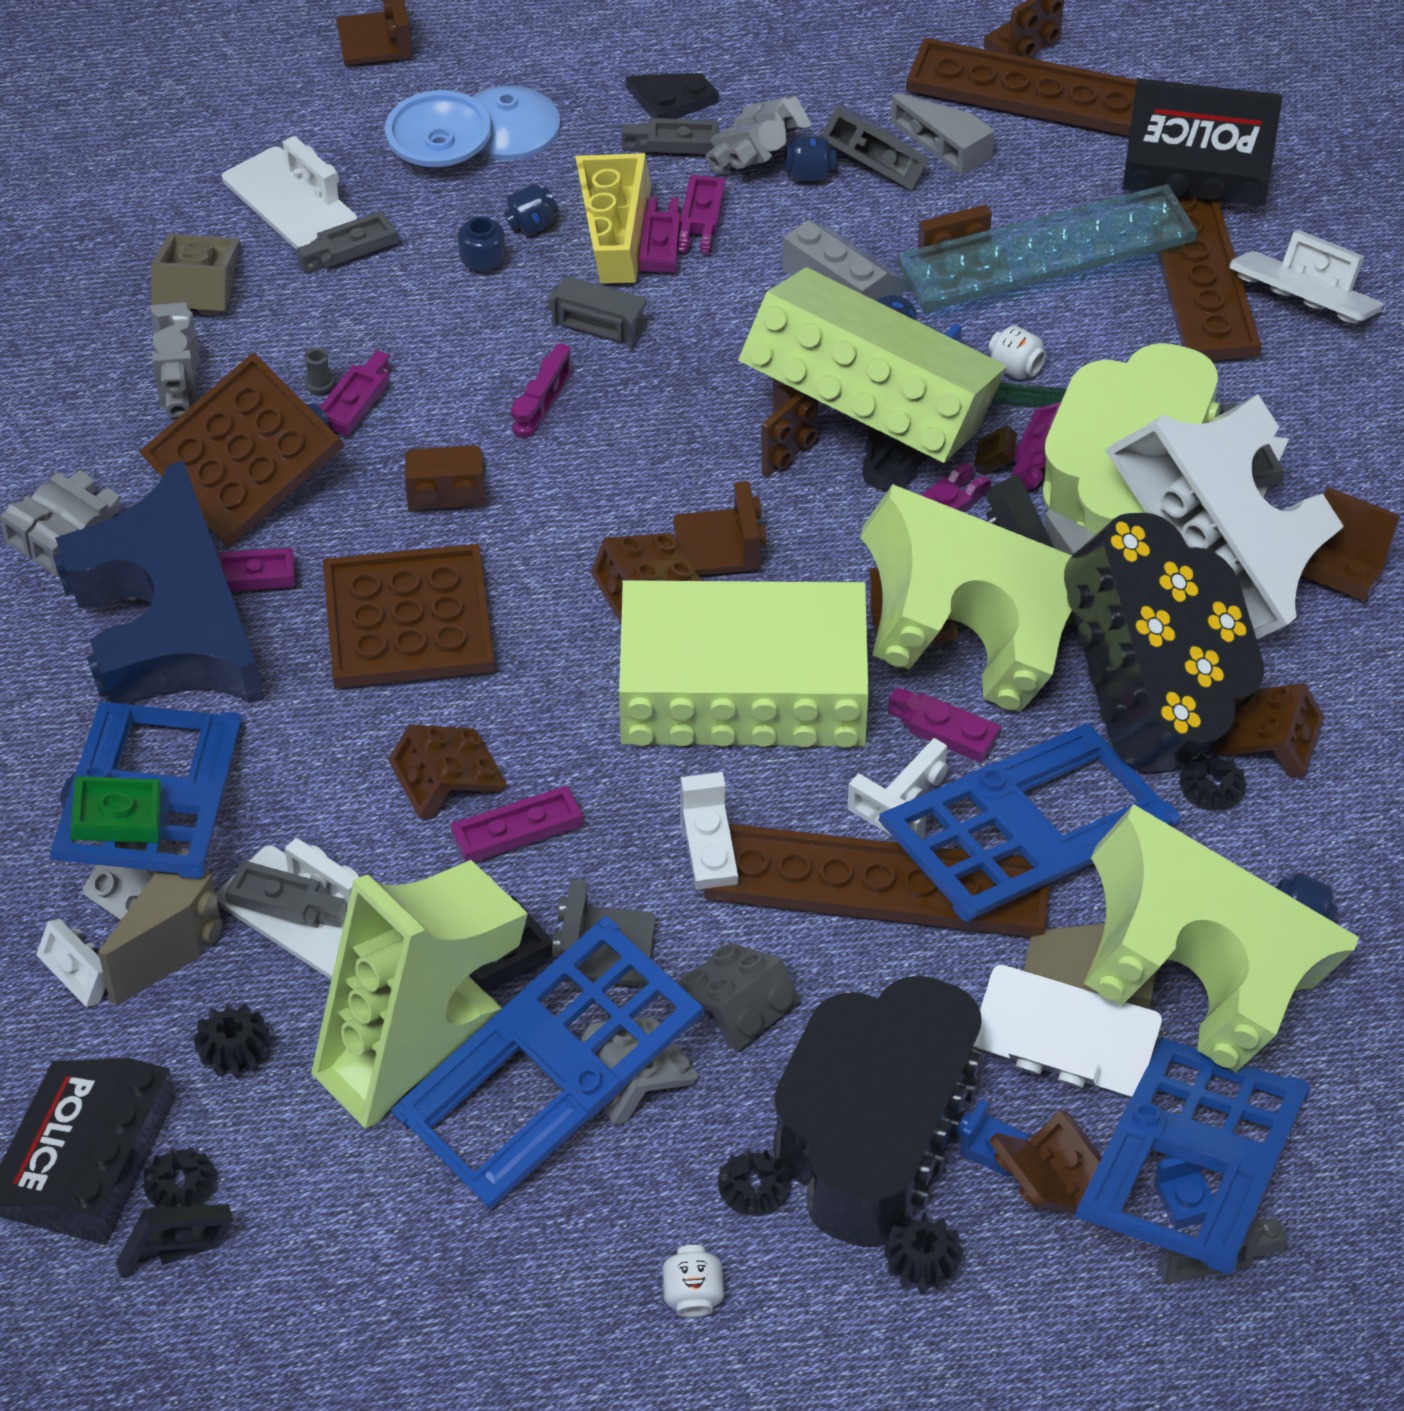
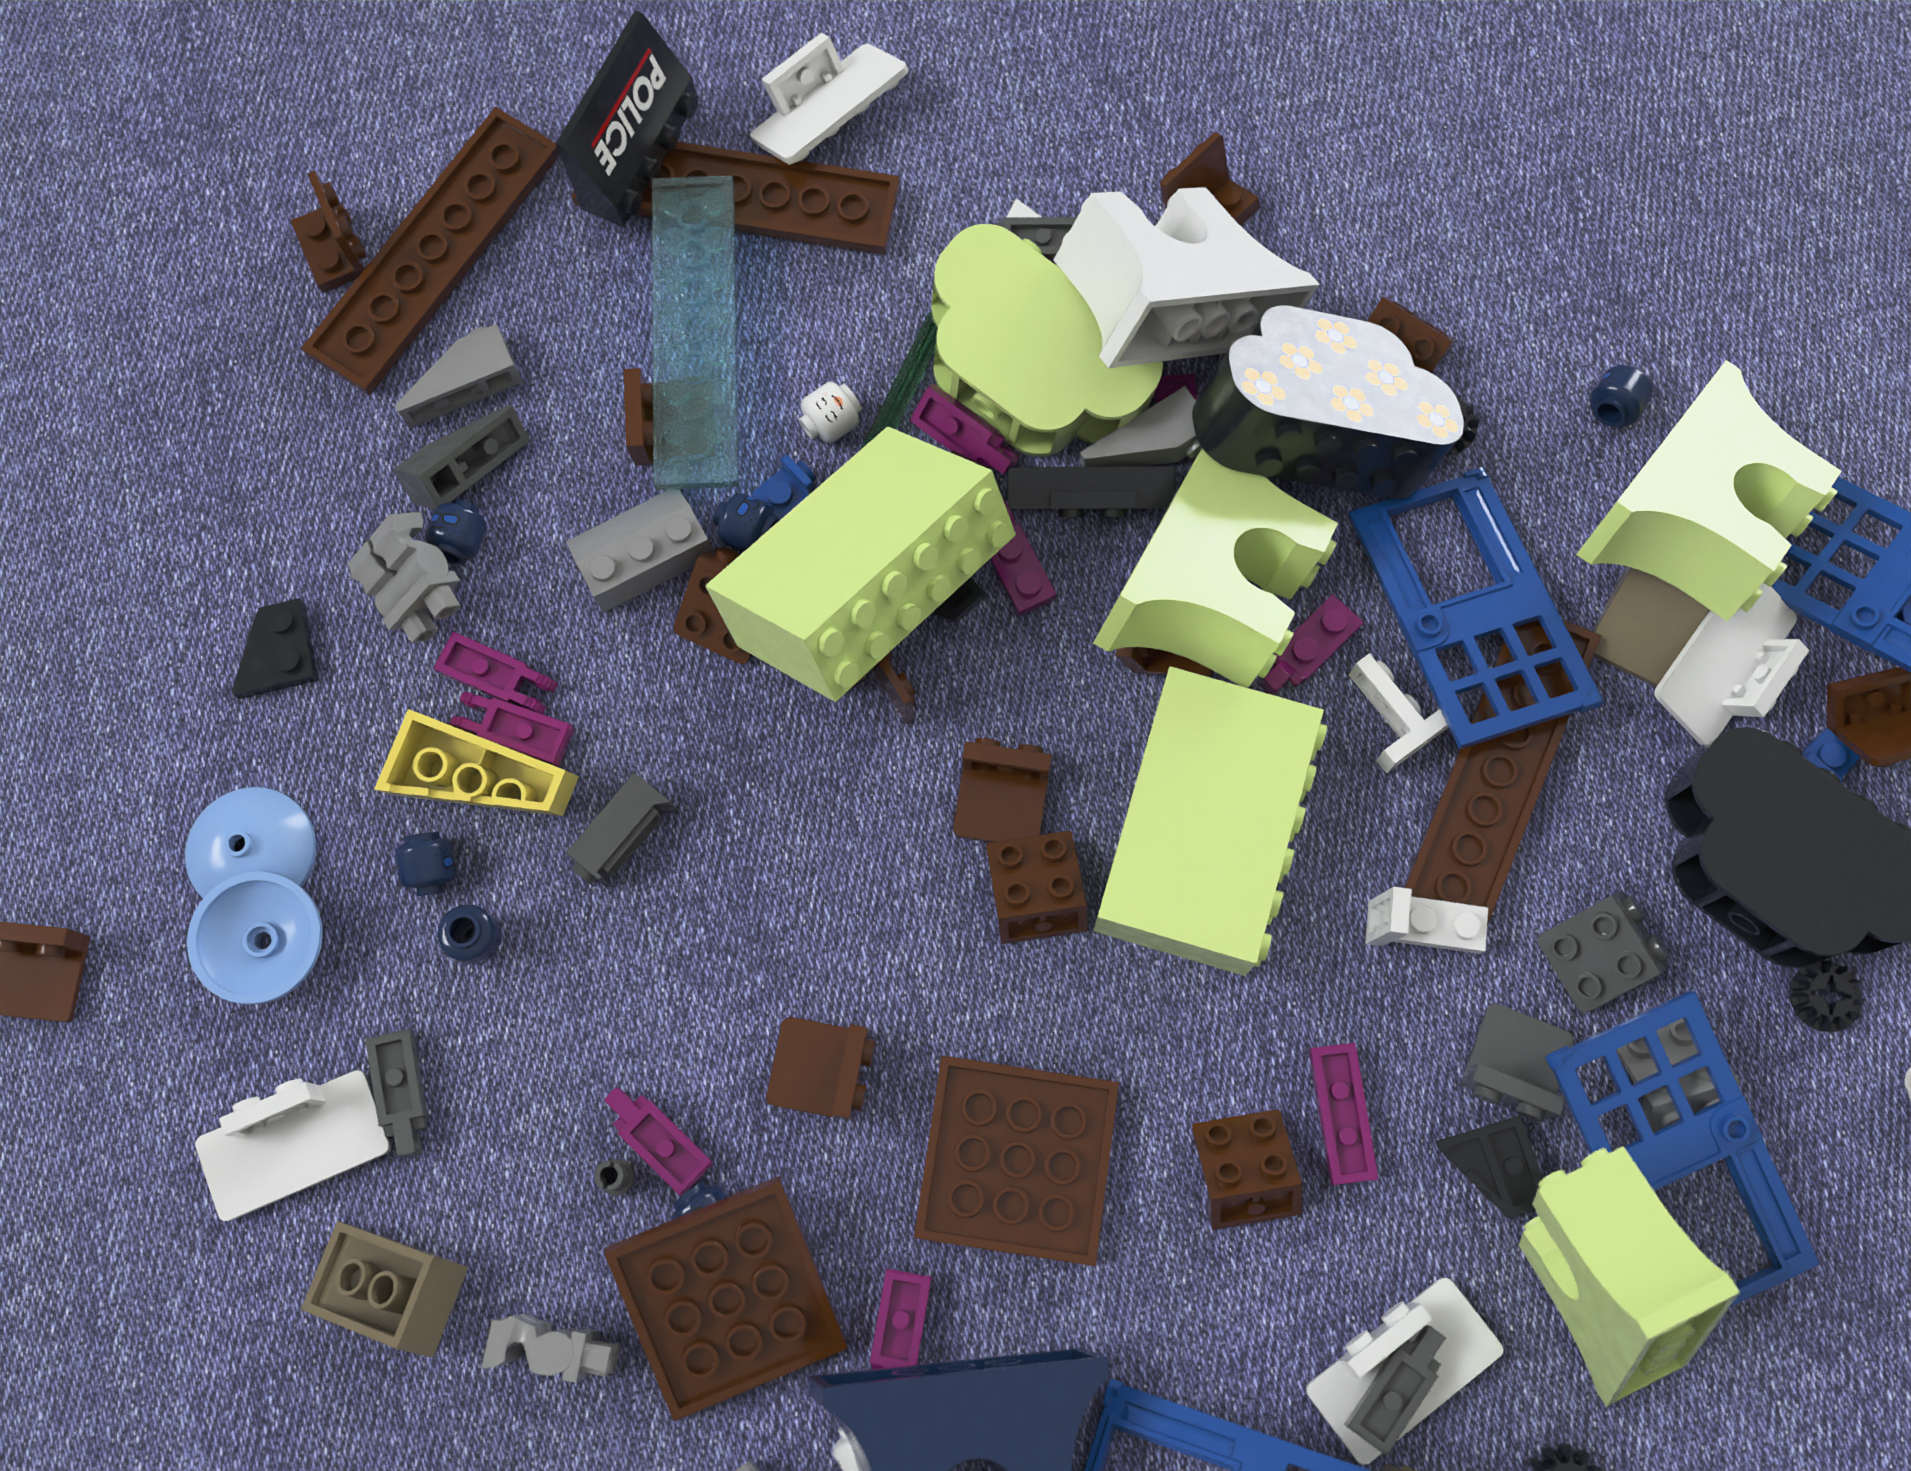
camera: 70 degrees left, 25 degrees up
(542, 392) = (725, 927): magenta hinge -> none
(670, 136) = (355, 669): dark grey hinge -> none

